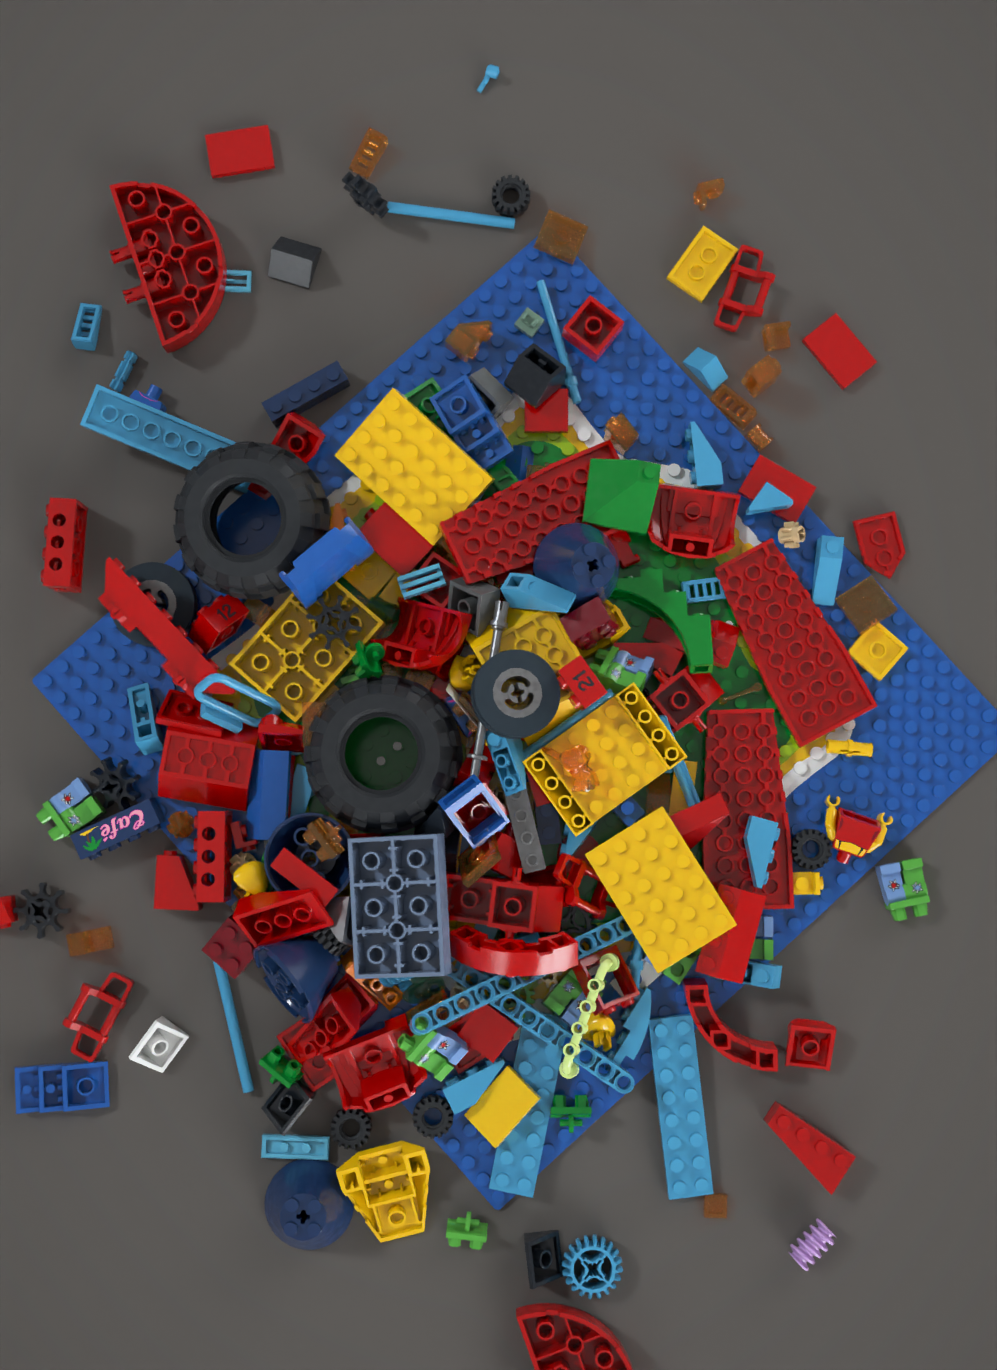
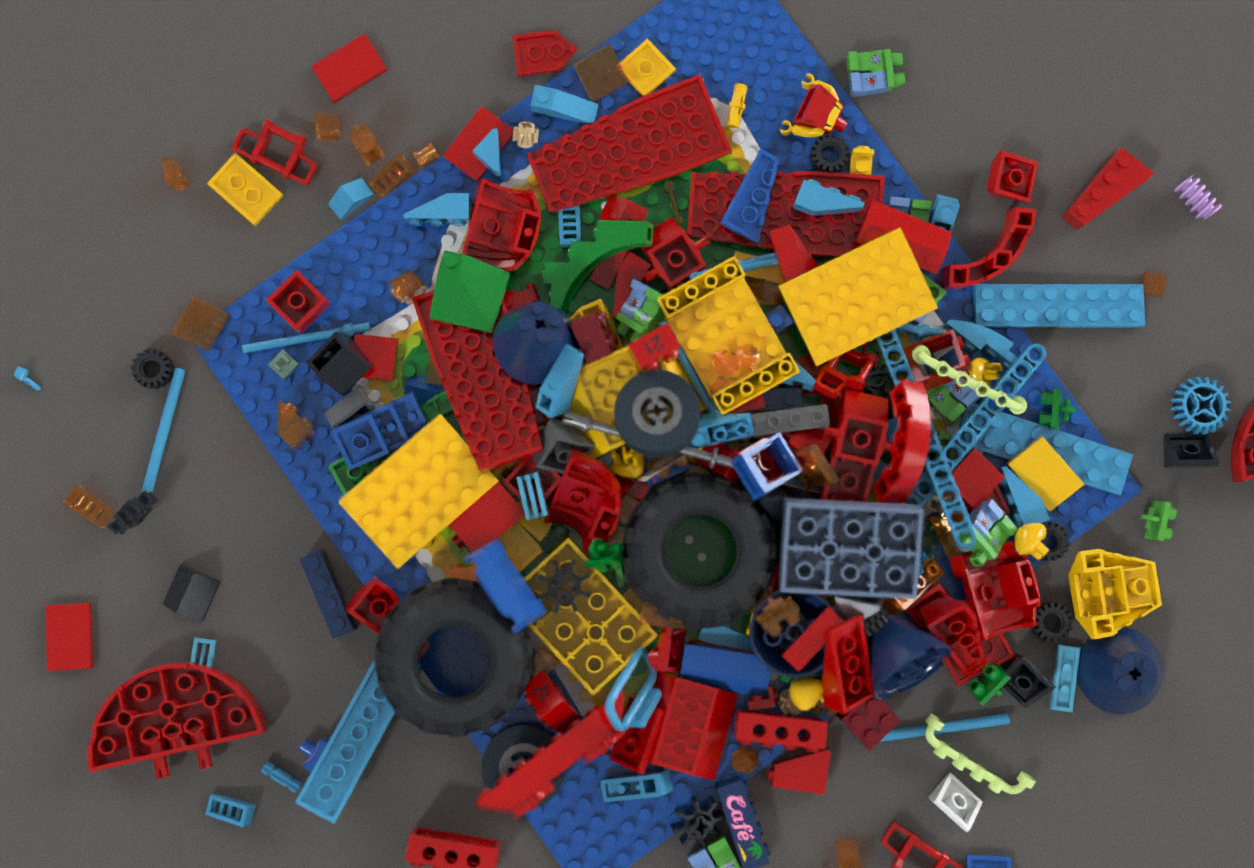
camera: 85 degrees left, 0 degrees up
(192, 1064) = (978, 772): none -> yellowish green bar
(430, 1093) = (1028, 540): none -> yellow piece
(746, 770) = (750, 202): none -> blue wing

